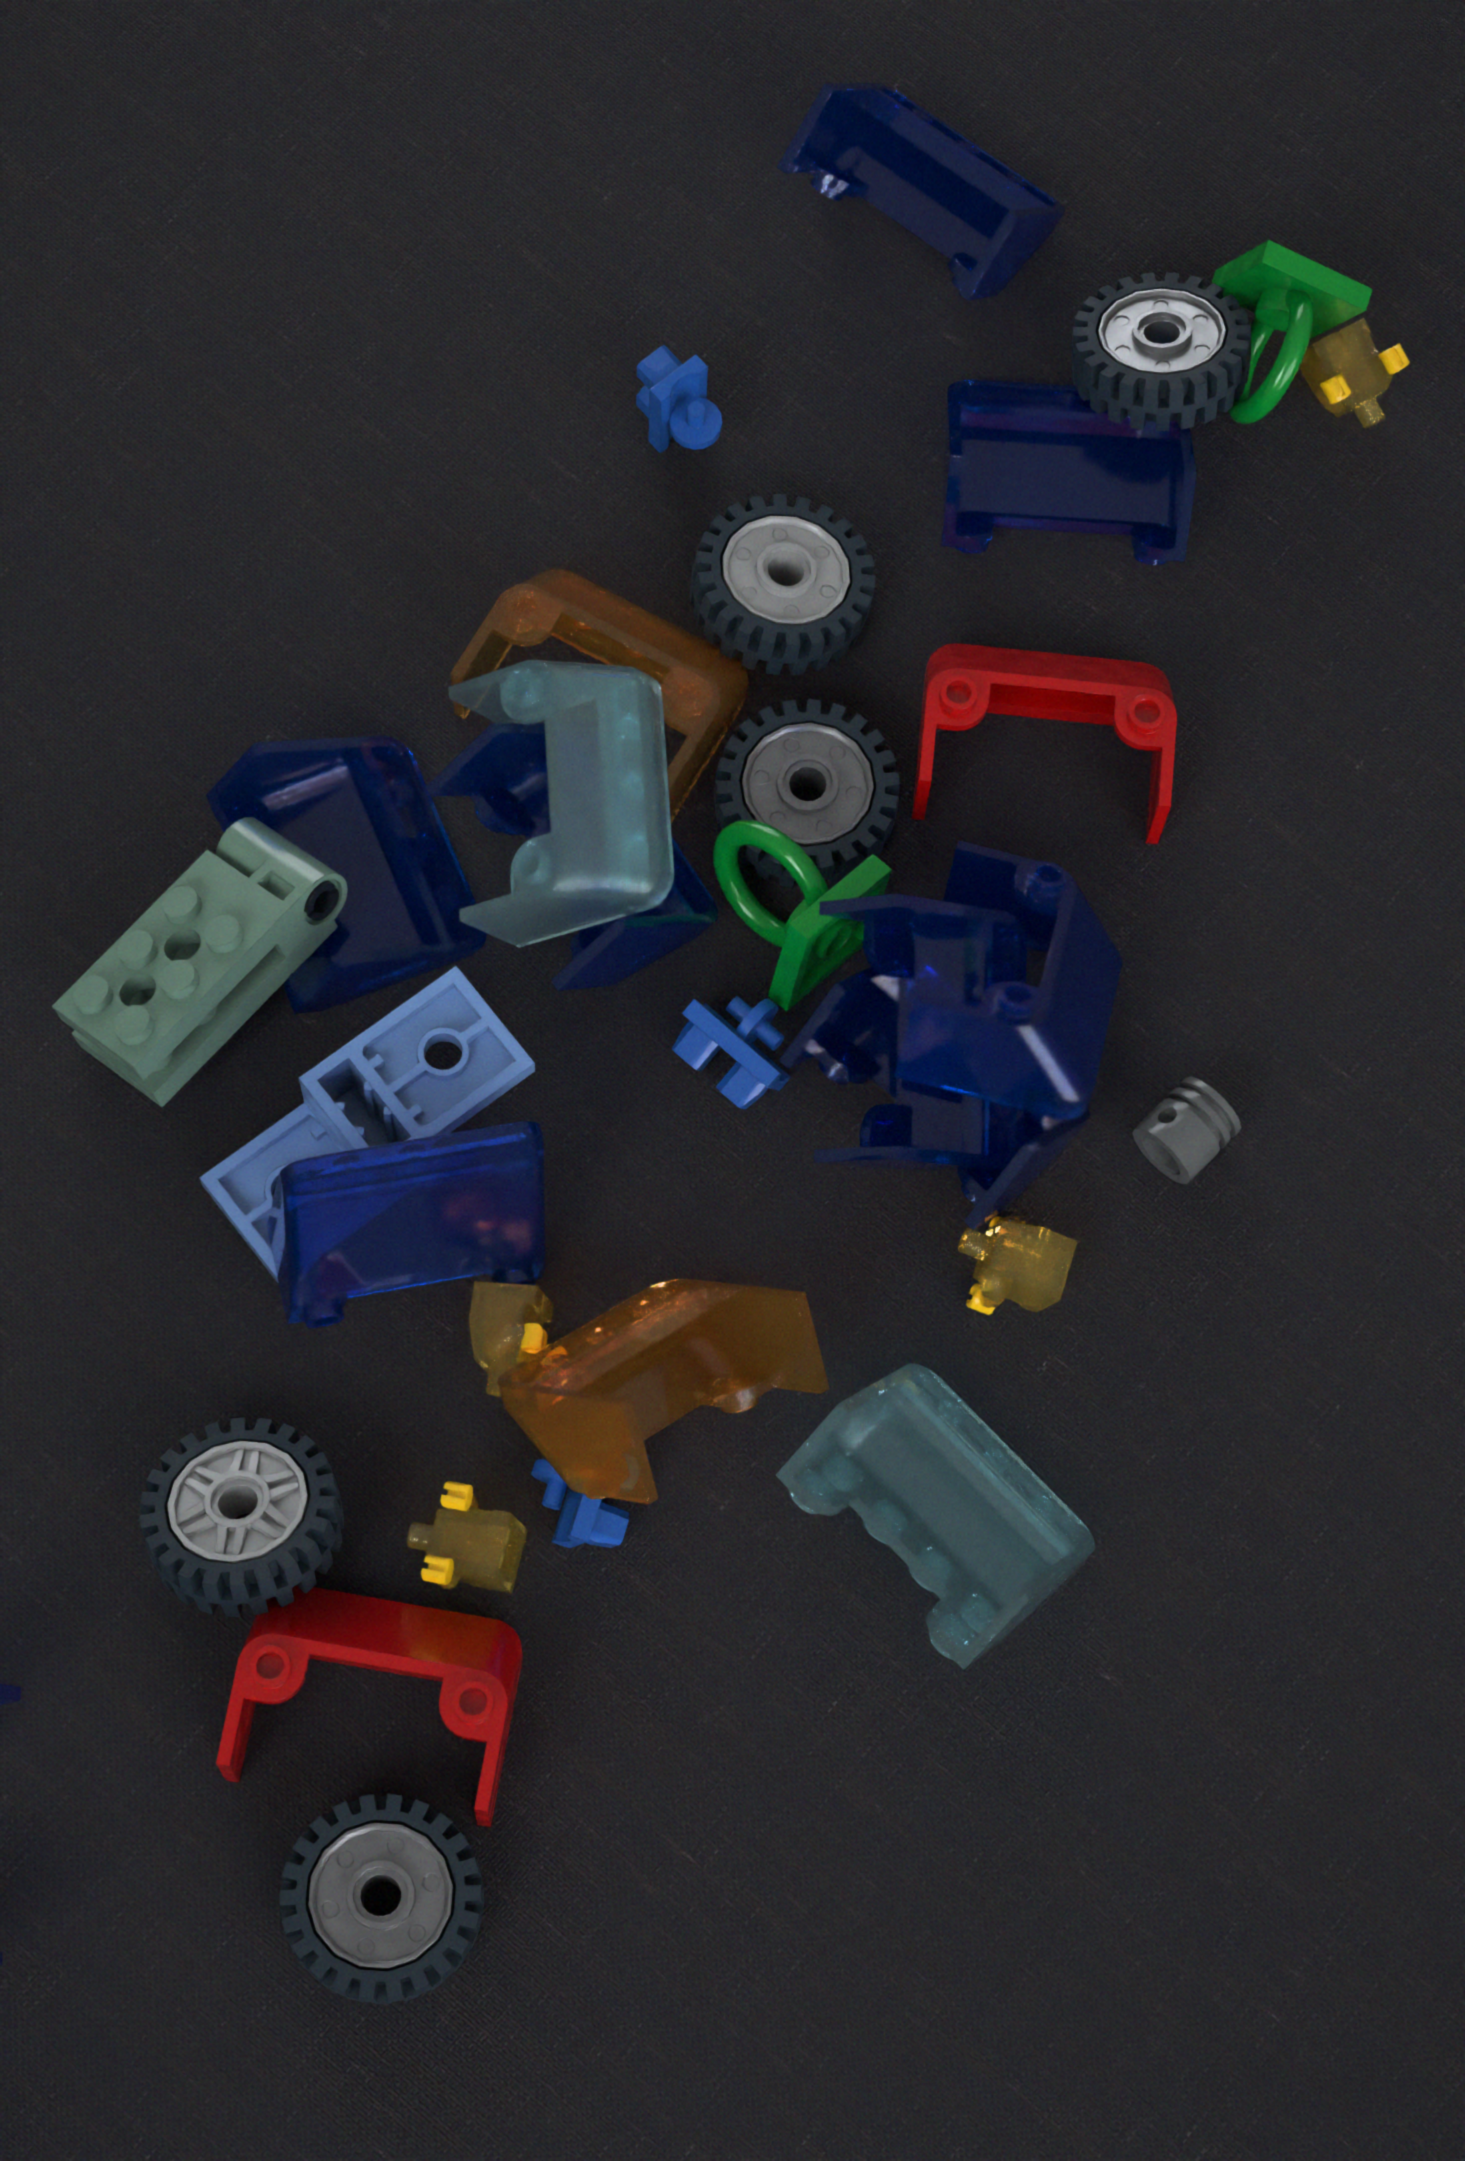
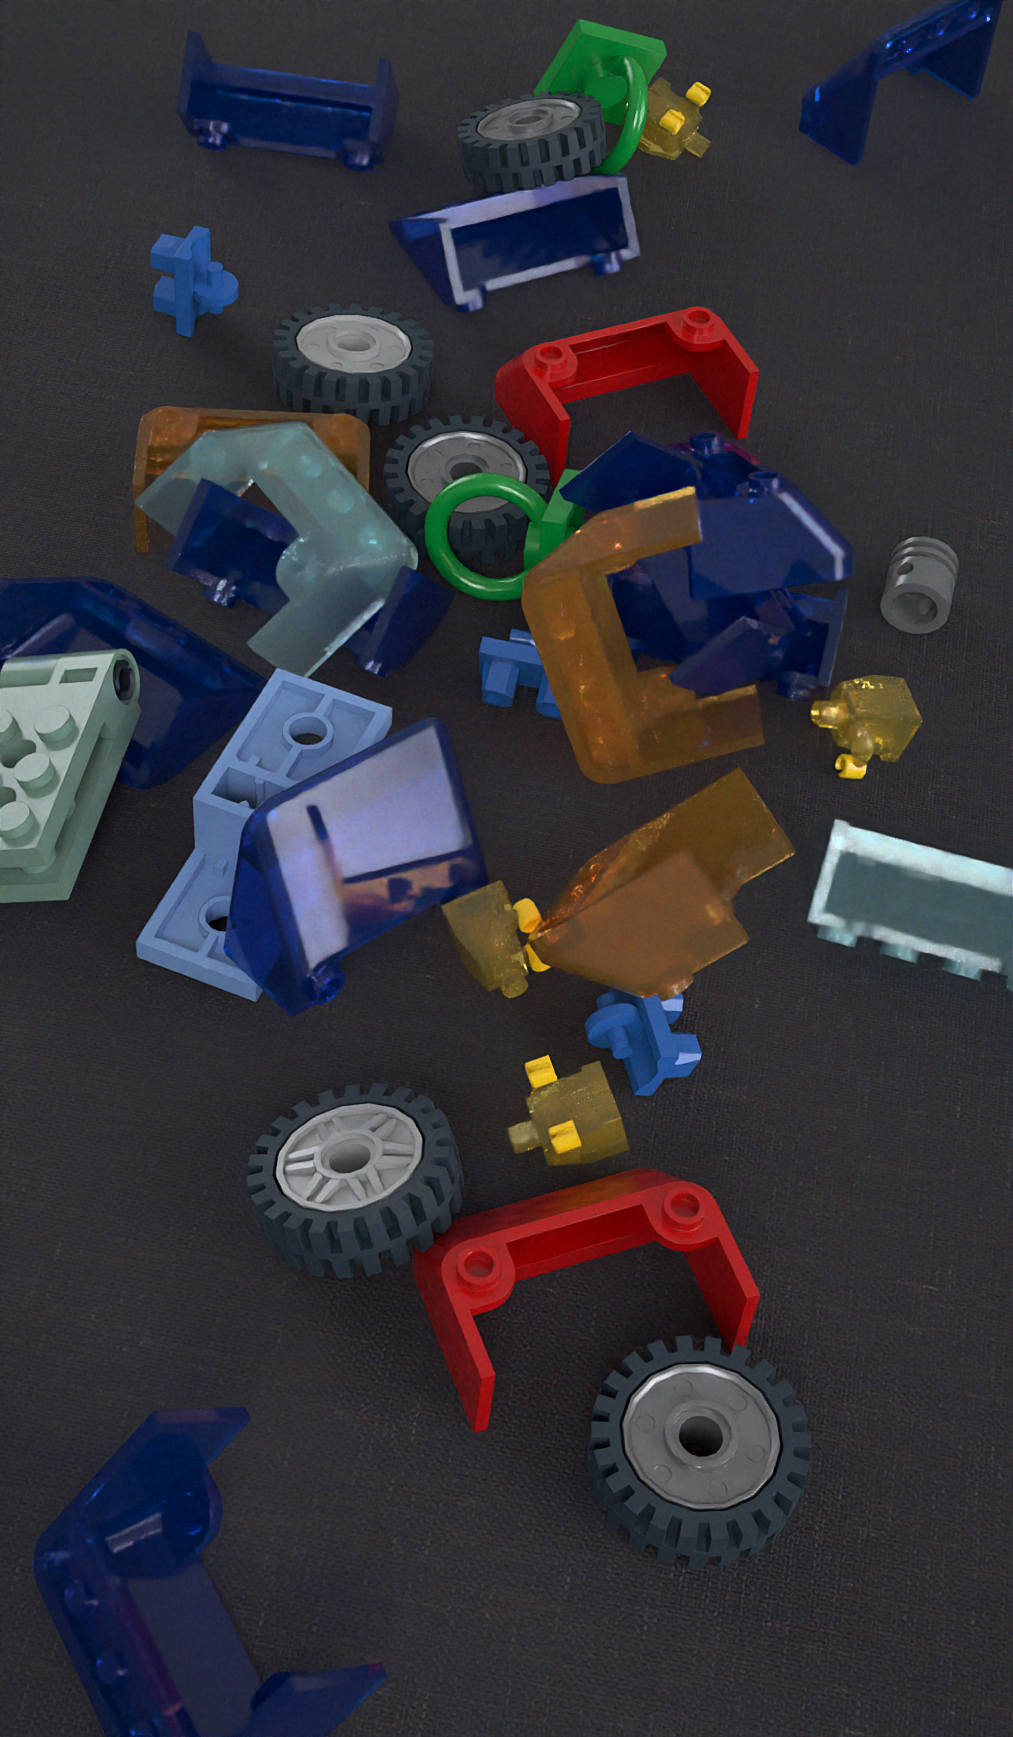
camera: 30 degrees left, 20 degrees down
(766, 1114) = (614, 716): none -> clear orange windscreen

